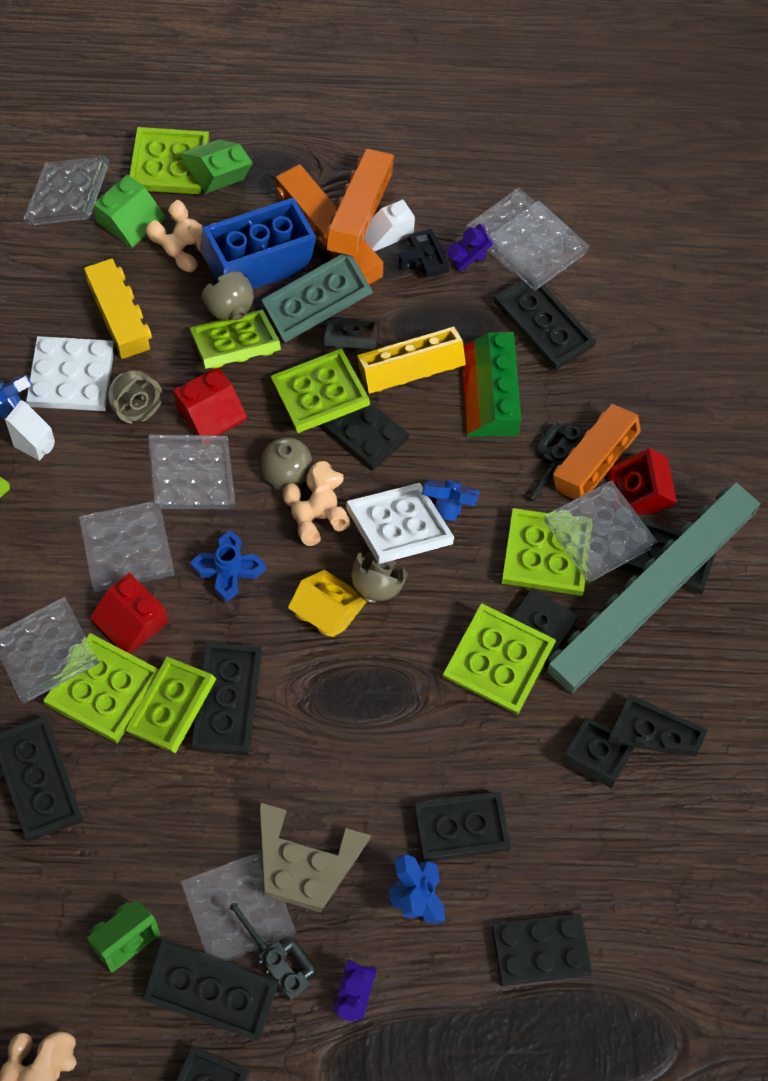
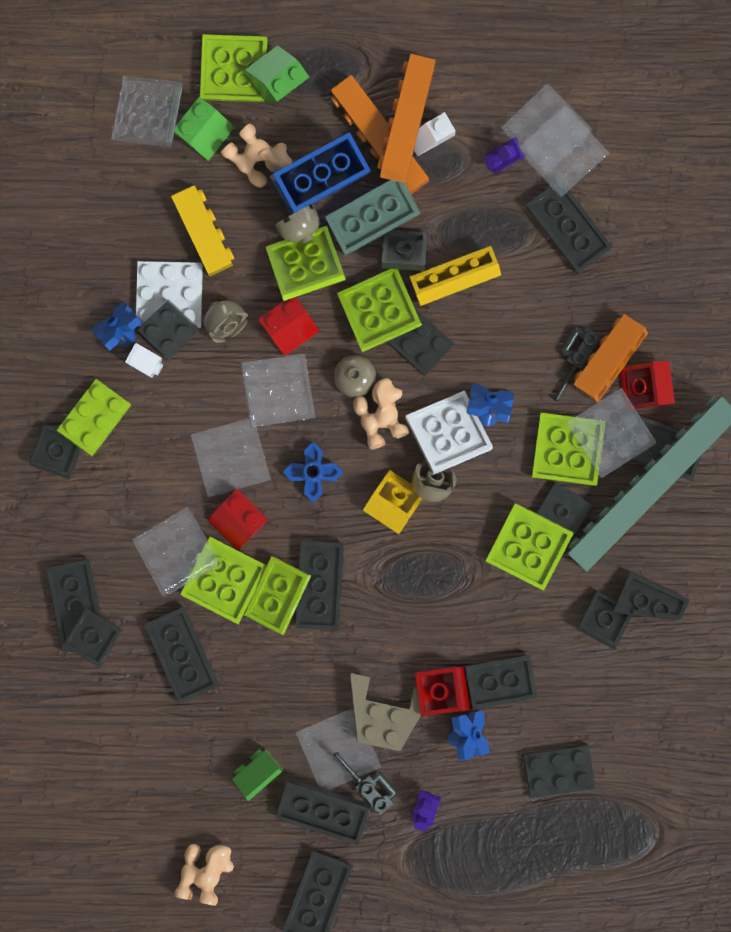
camera: 10 degrees right, 25 degrees up
(65, 403) = (168, 329): none -> pearl dark grey plate
(382, 831) = (442, 691): none -> red slope
(424, 254) = (465, 160): black hinge -> none
(491, 386) = (522, 294): green slope -> none

